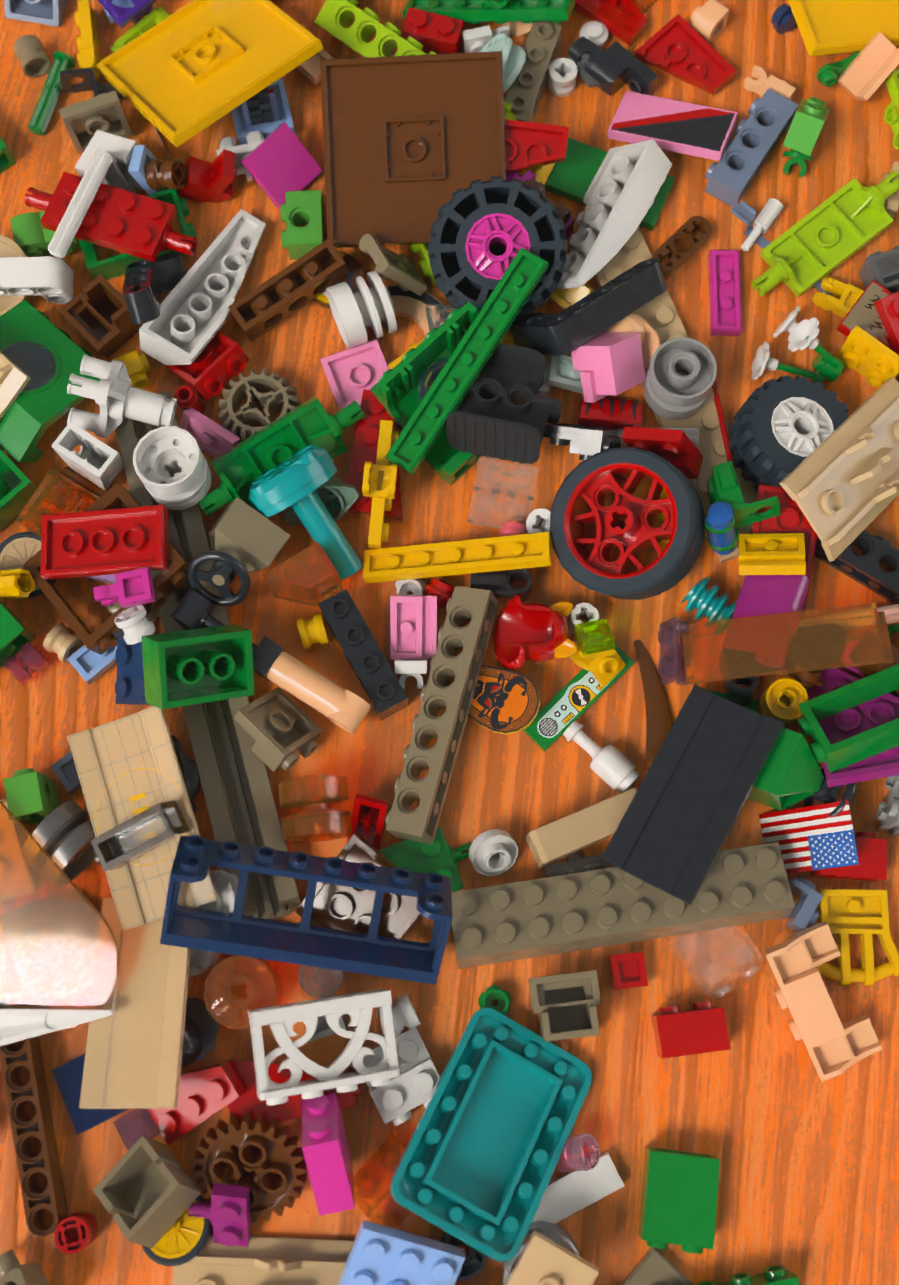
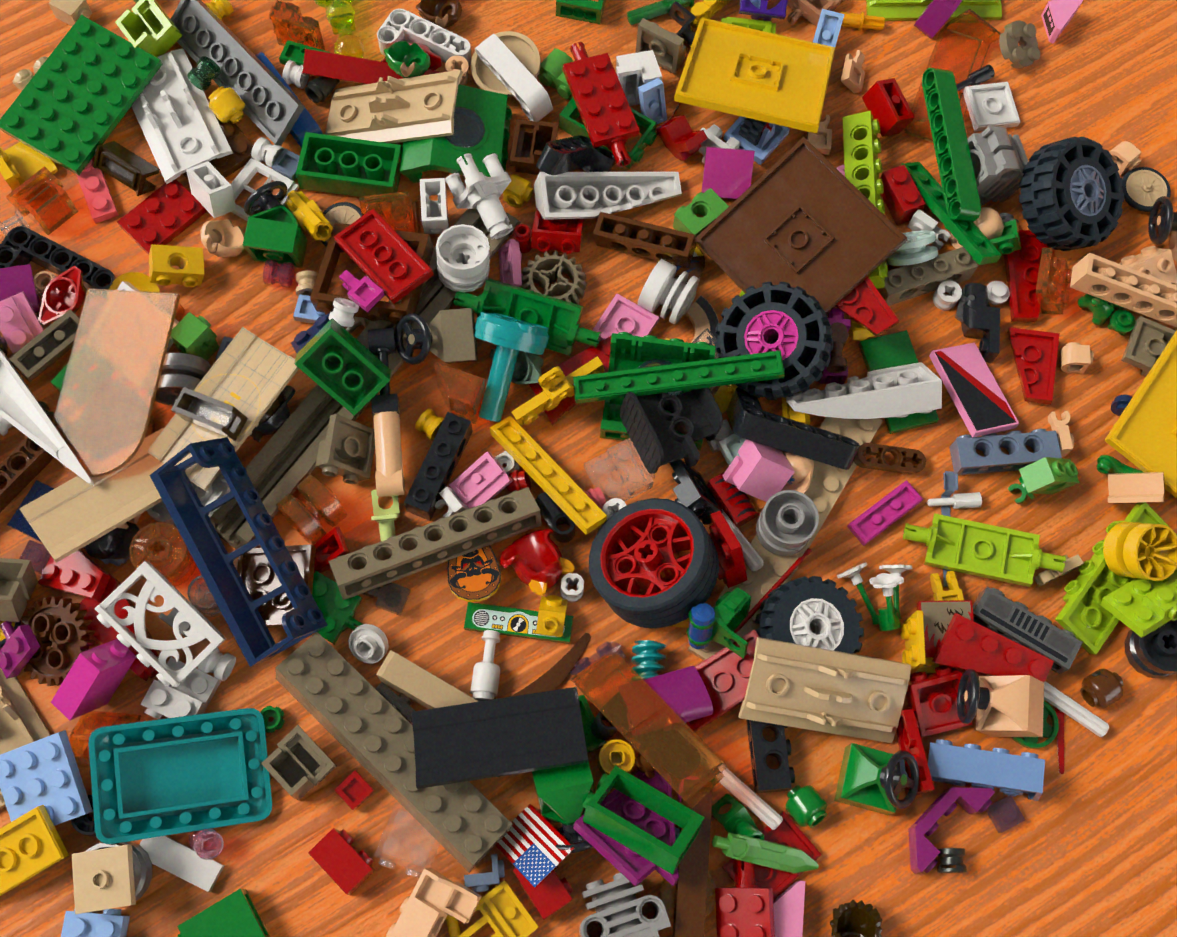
camera: 45 degrees right, 5 degrees down
(80, 203) = (591, 76): white axle -> none
(165, 174) = (658, 110): reddish brown wheel -> none
(375, 744) = (385, 517): none -> yellowish green bracket
(393, 266) = (714, 288): dark tan plate -> none
(462, 797) = (390, 597): none -> clear smoke plate
(594, 636) = (560, 598): clear neon green plate -> none
(772, 554) = (710, 672): yellow plate -> none

